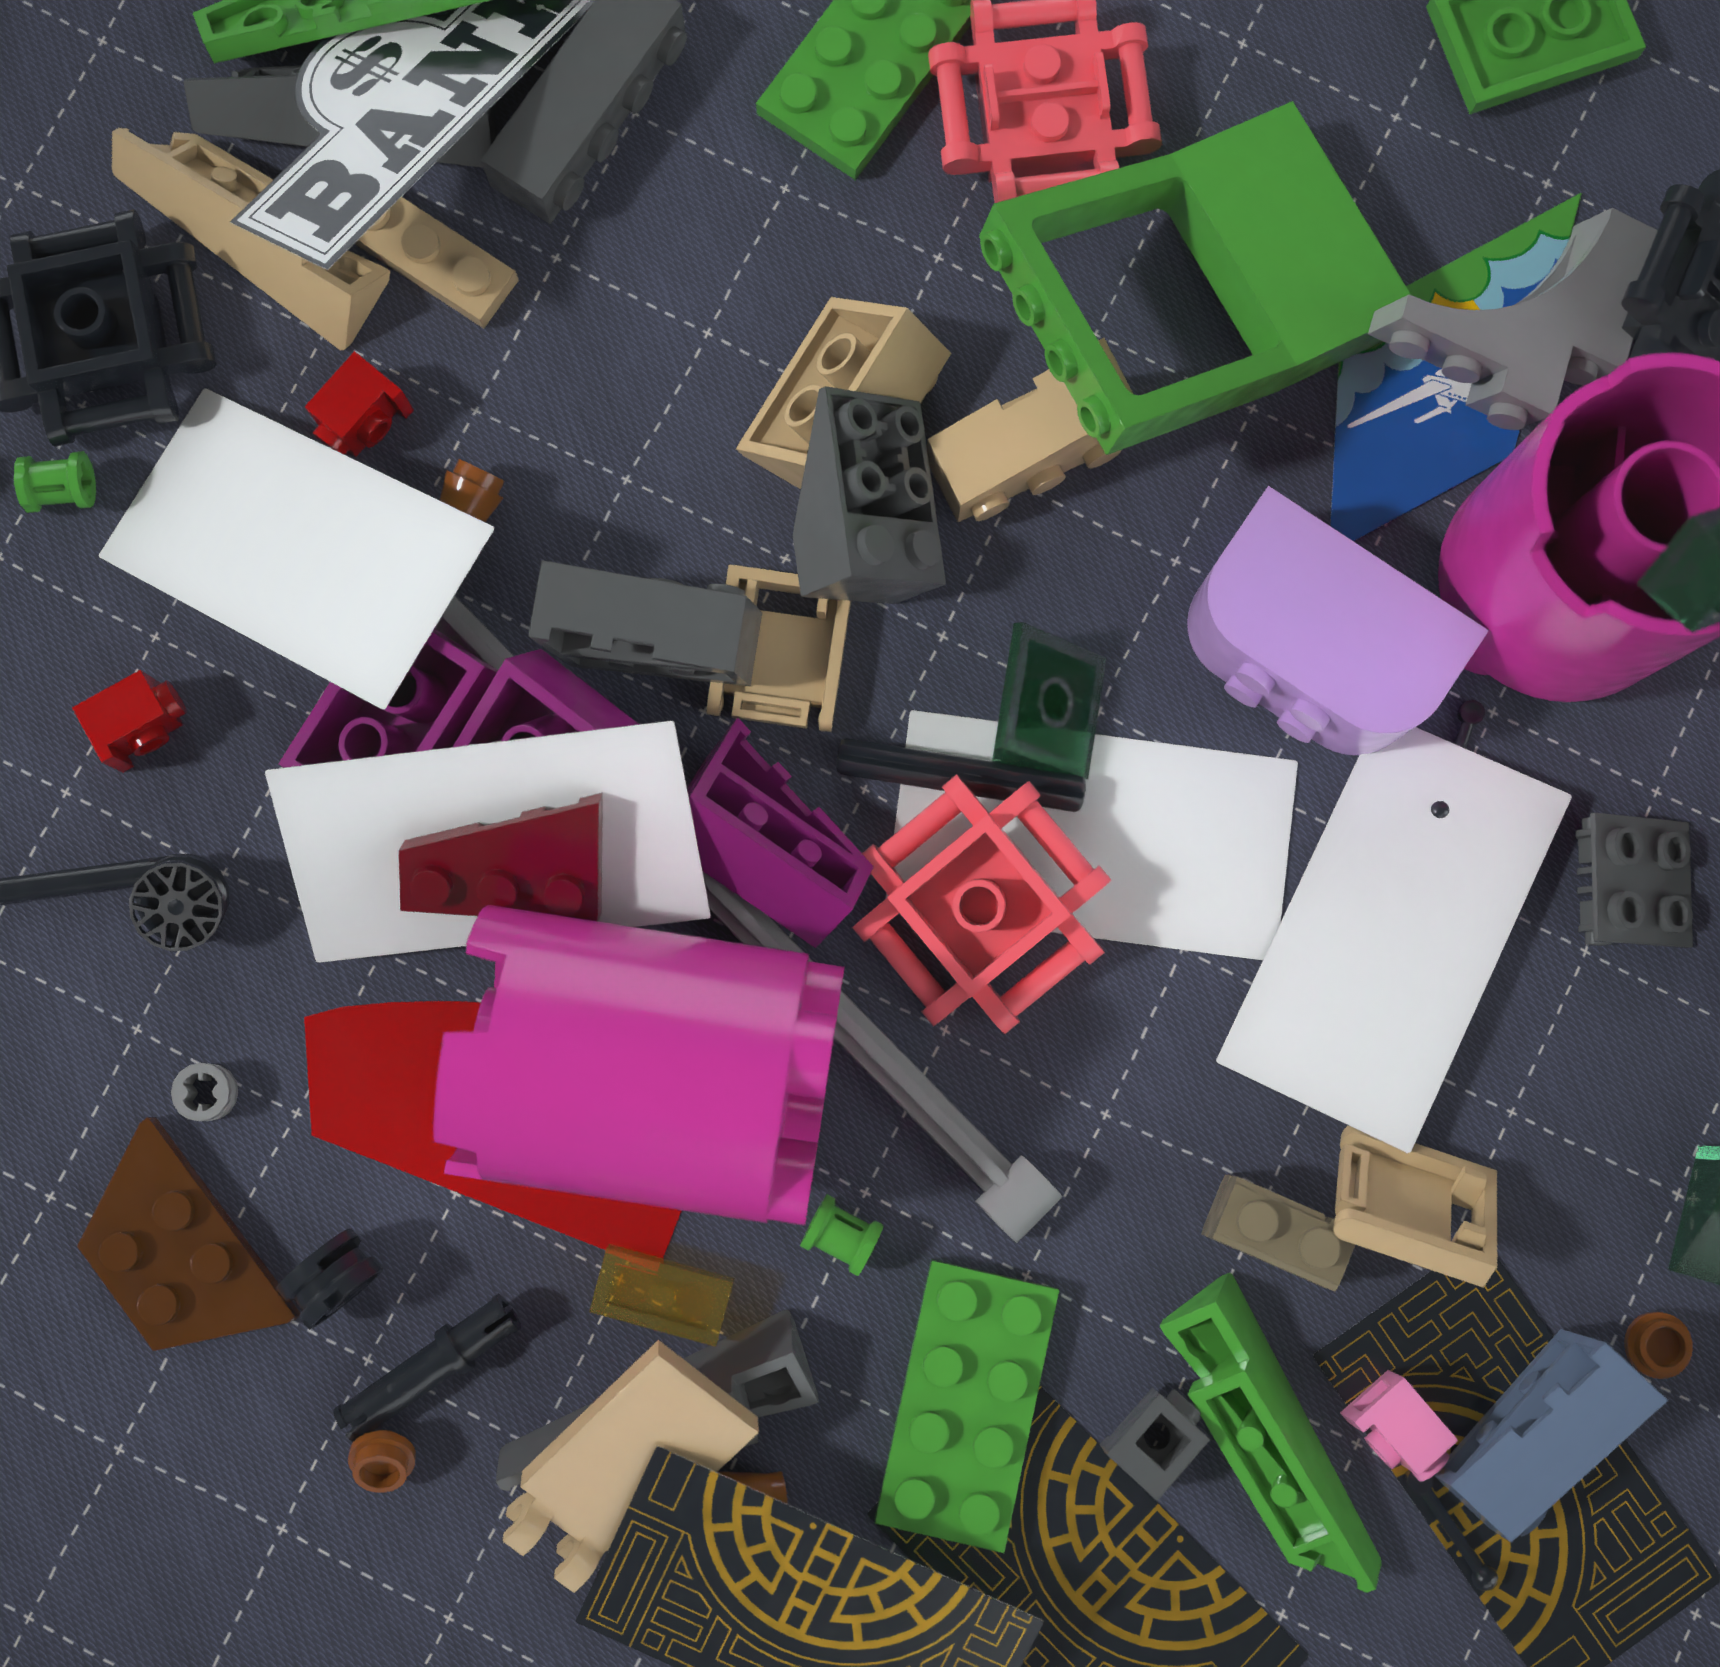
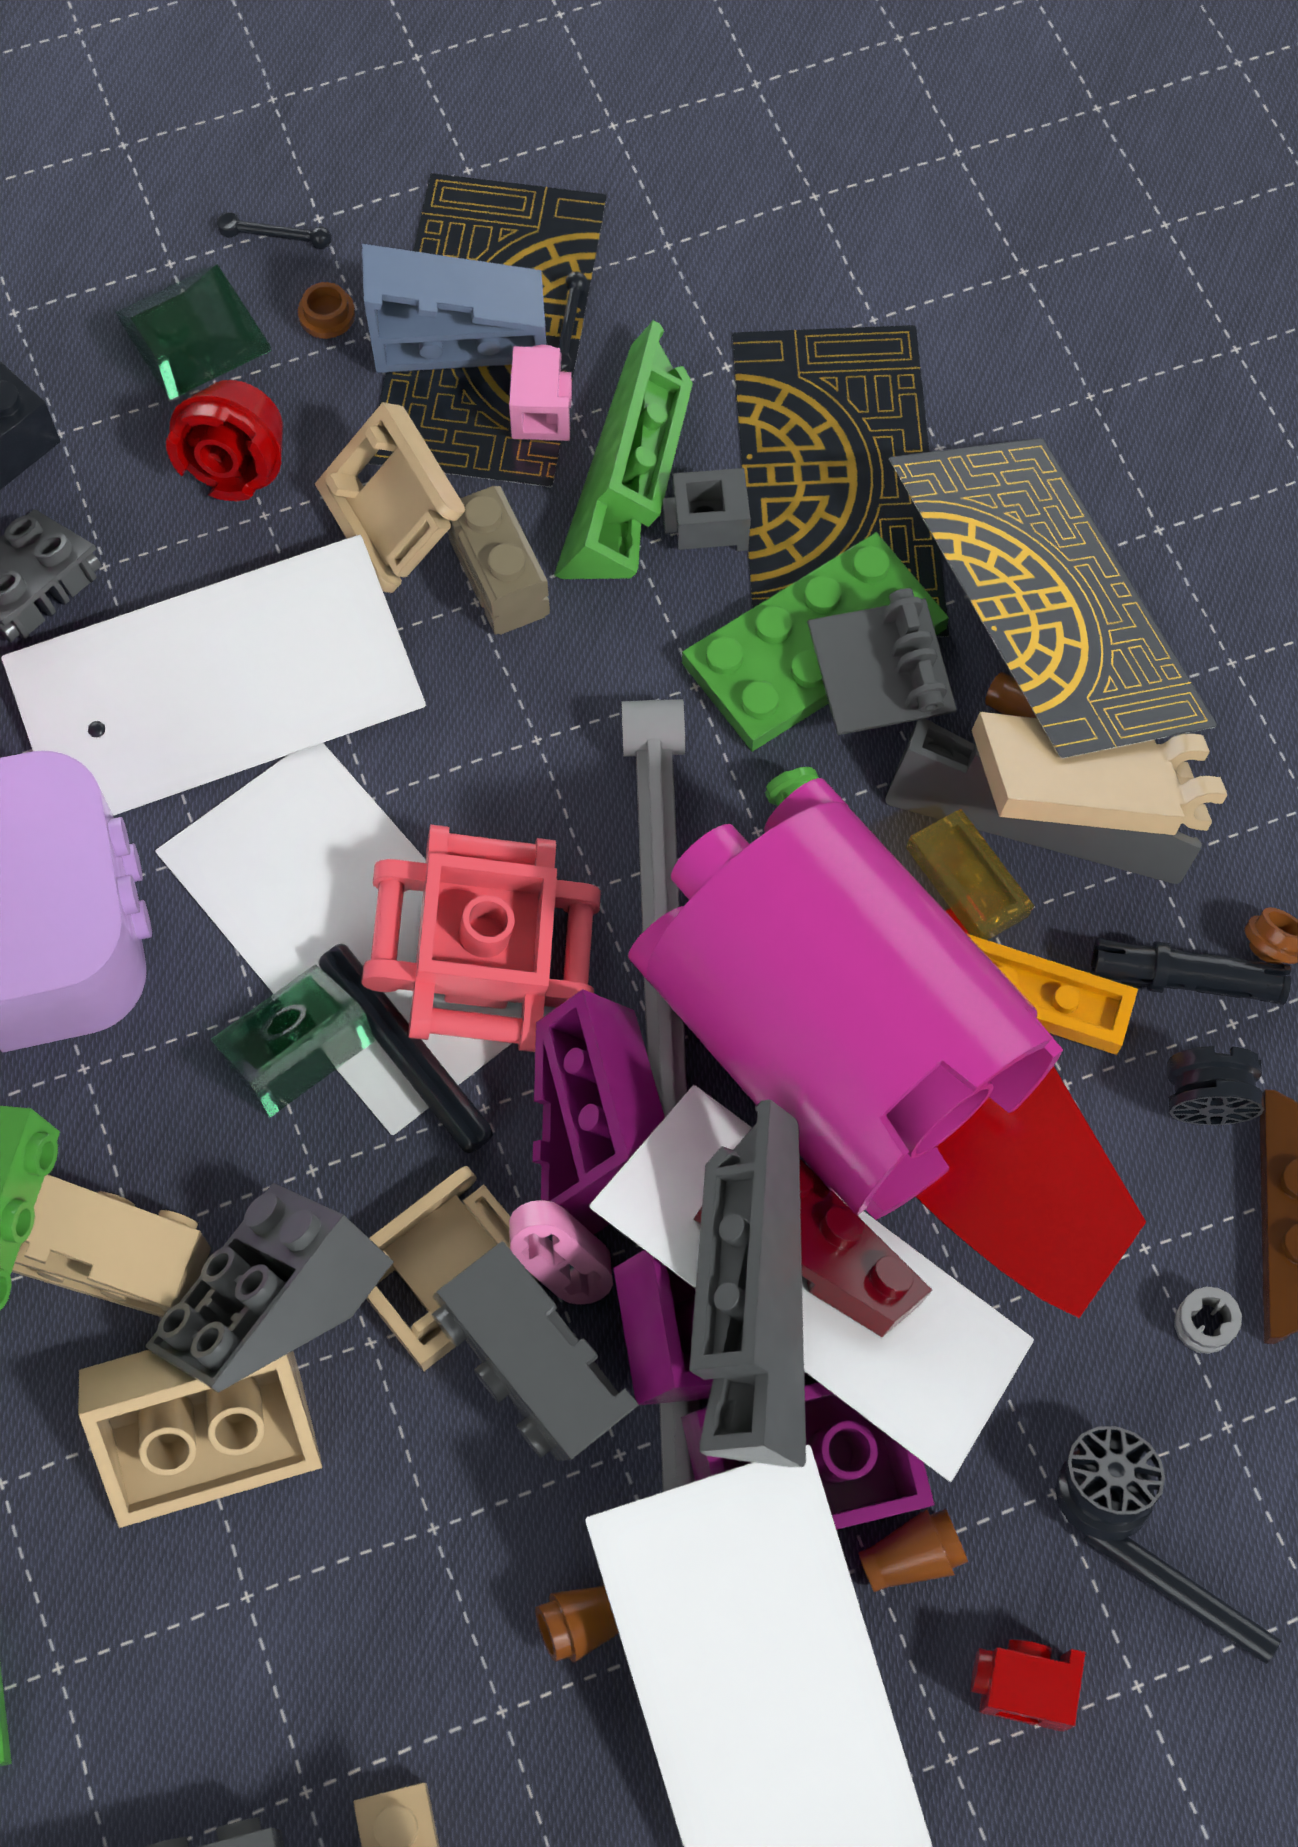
camera: 135 degrees left, 15 degrees down
(274, 735) = (914, 1552): none -> dark orange cone
(356, 407) = (603, 1794): red brick -> none
(502, 763) = (751, 1297): none -> dark grey wedge
(527, 1244) = (1066, 998): none -> light orange plate
(705, 712) = (570, 1246): none -> bright pink beam
(882, 1416) = (882, 665): none -> dark grey hinge
(1599, 1138) = (227, 439): none -> red cone

